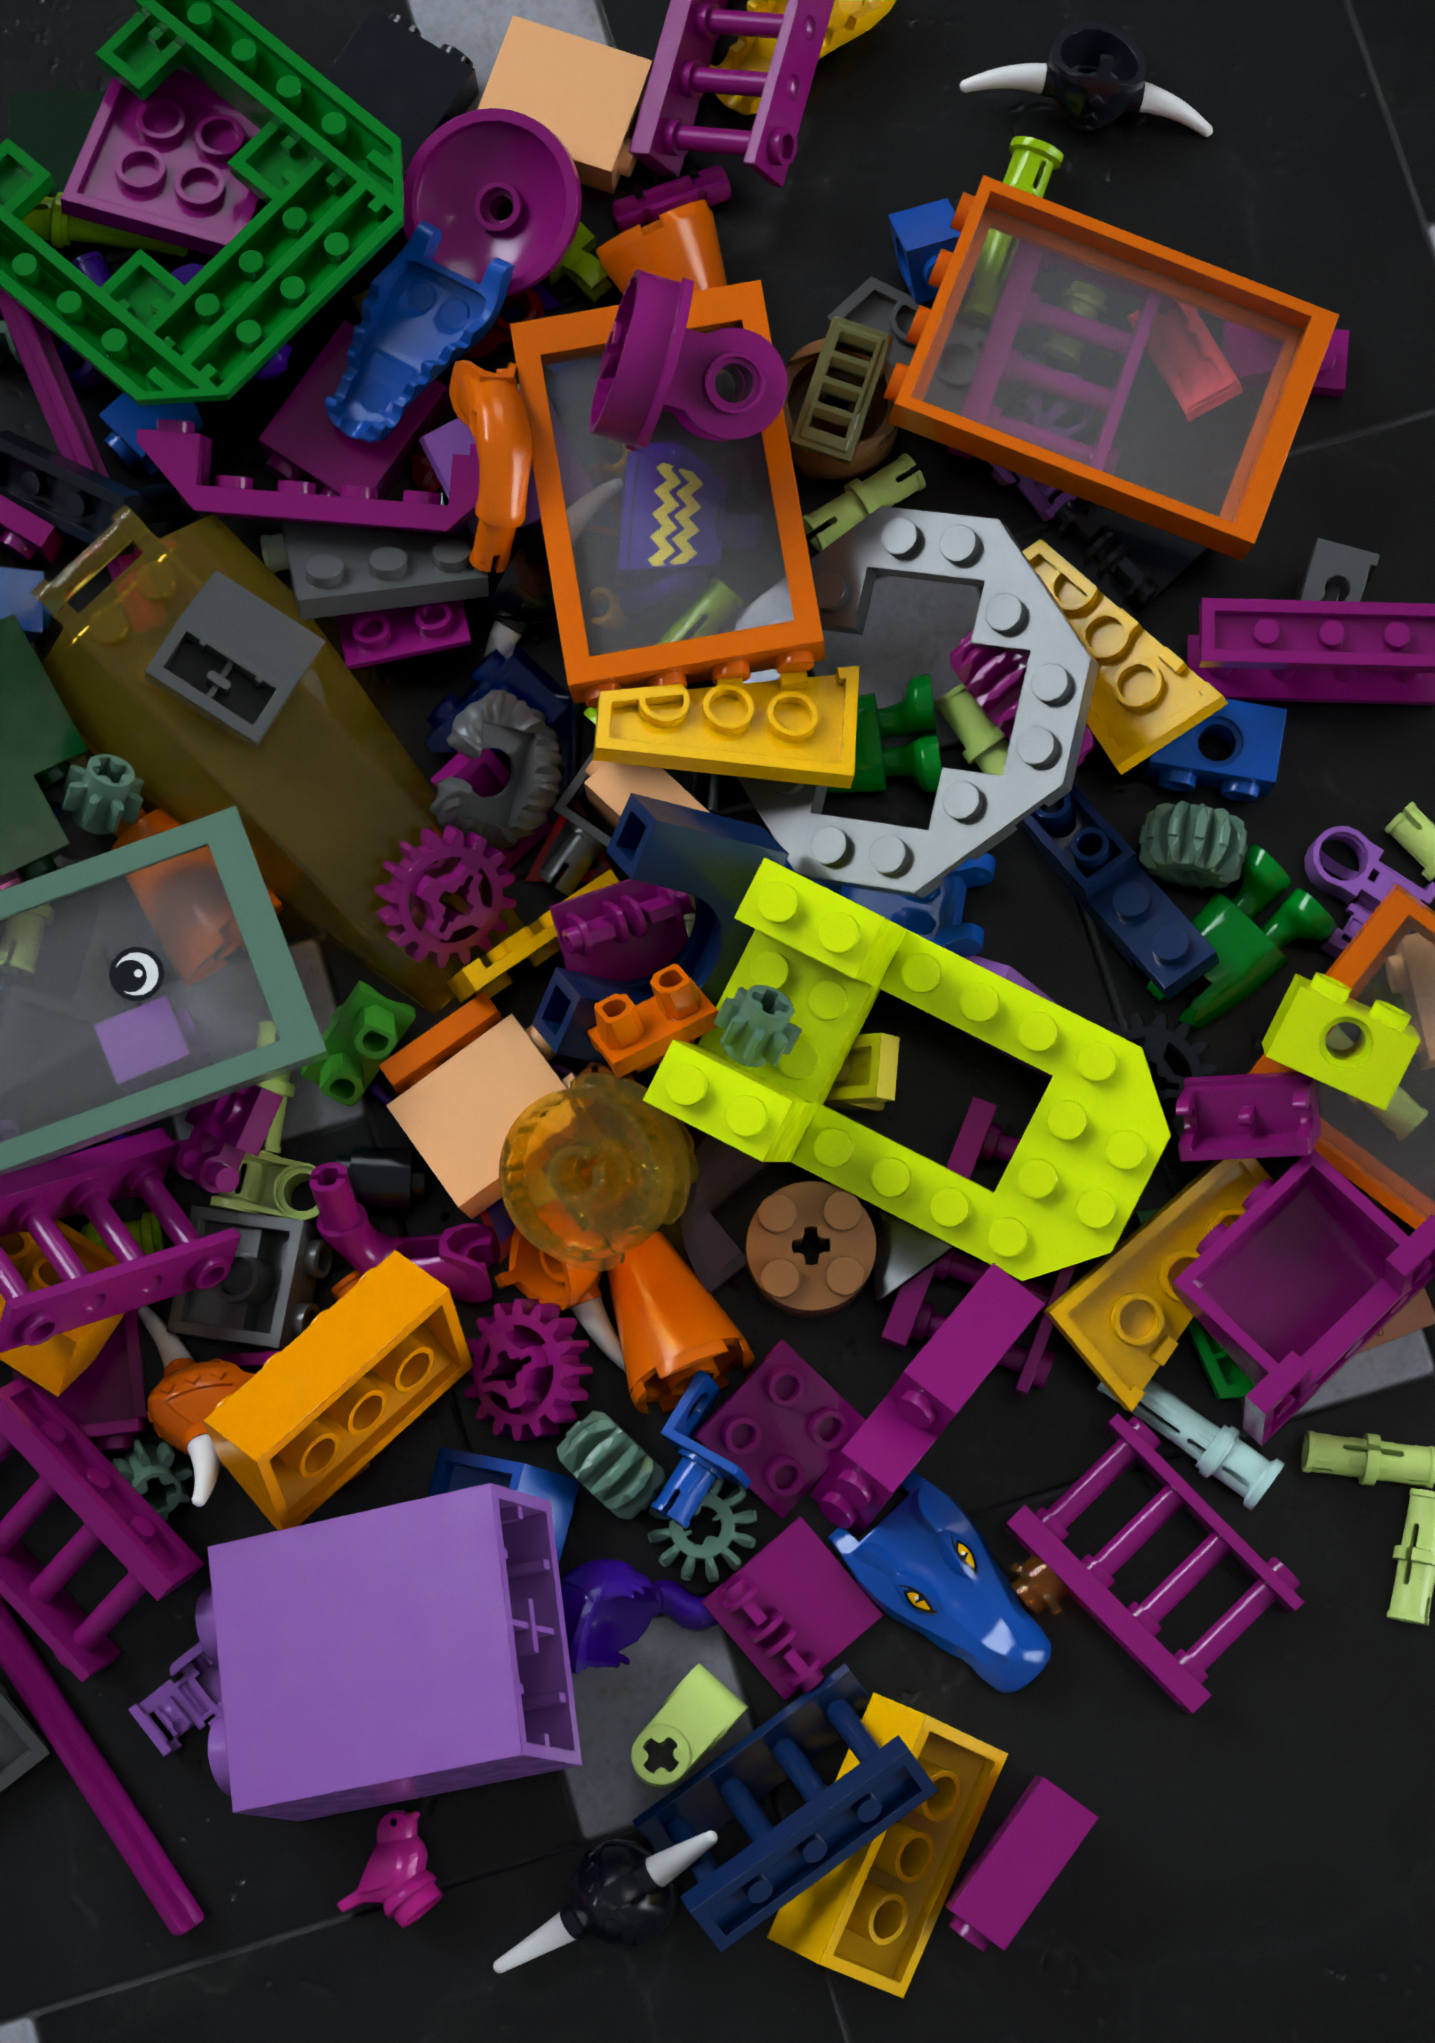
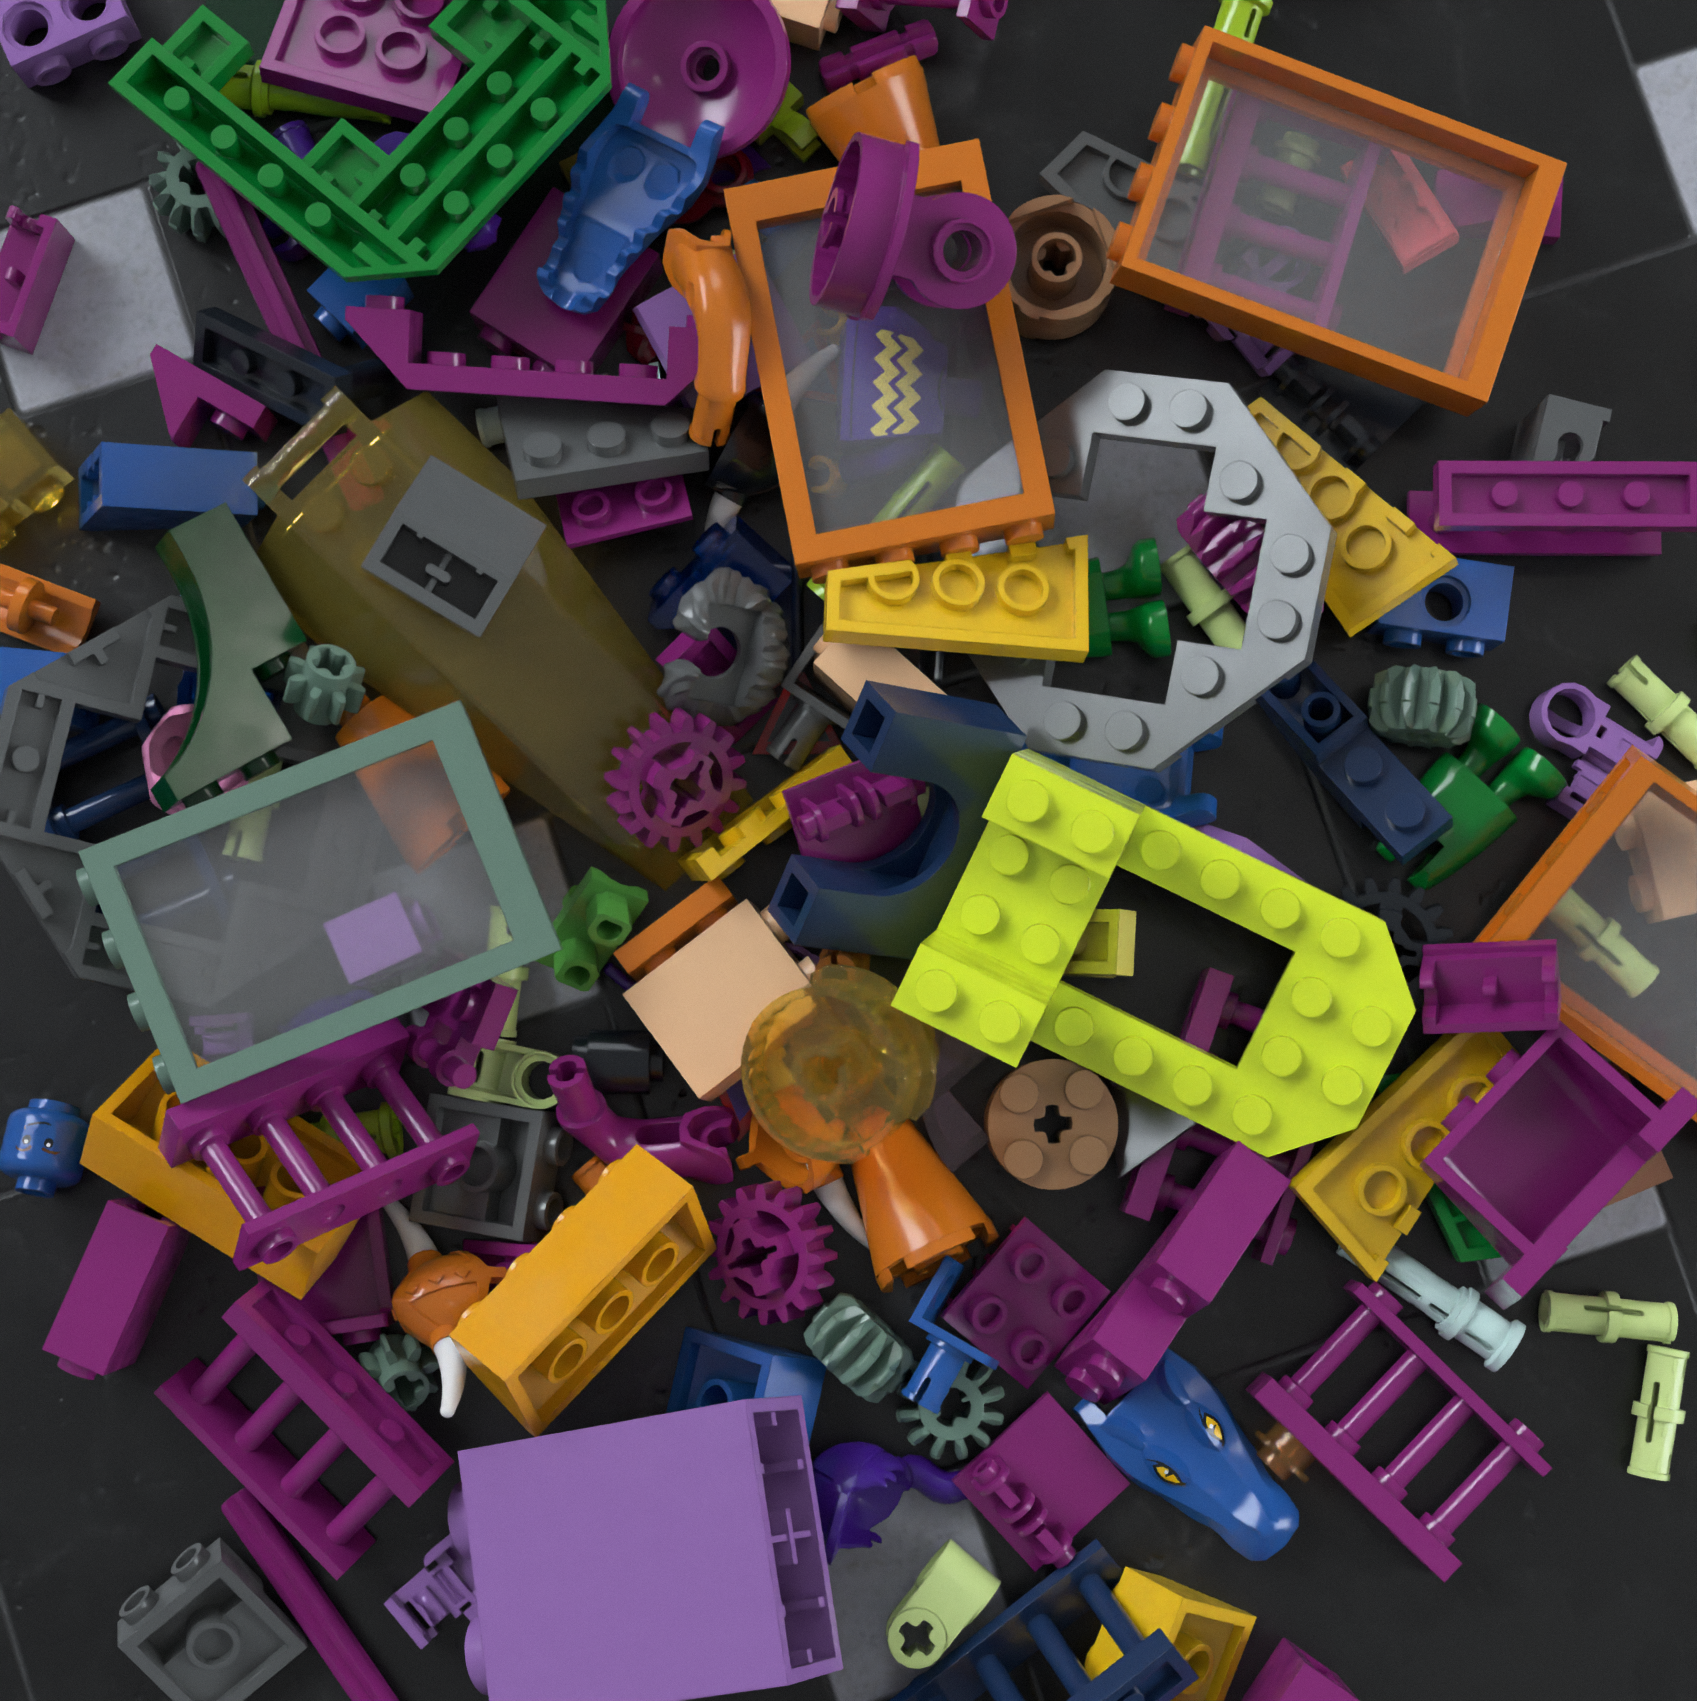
camera: 10 degrees left, 5 degrees up
(136, 973) = (364, 876): black sticker -> none
(640, 1034) = (895, 916): orange hips -> none
(757, 1026) = (1001, 916): sand green gear -> none
(858, 339) = (1079, 198): olive slope -> none
(862, 499) = (1082, 361): yellowish green pin -> none
(917, 242) = (1132, 97): blue brick -> none
(1365, 1070) = (1613, 937): neon yellow brick -> none

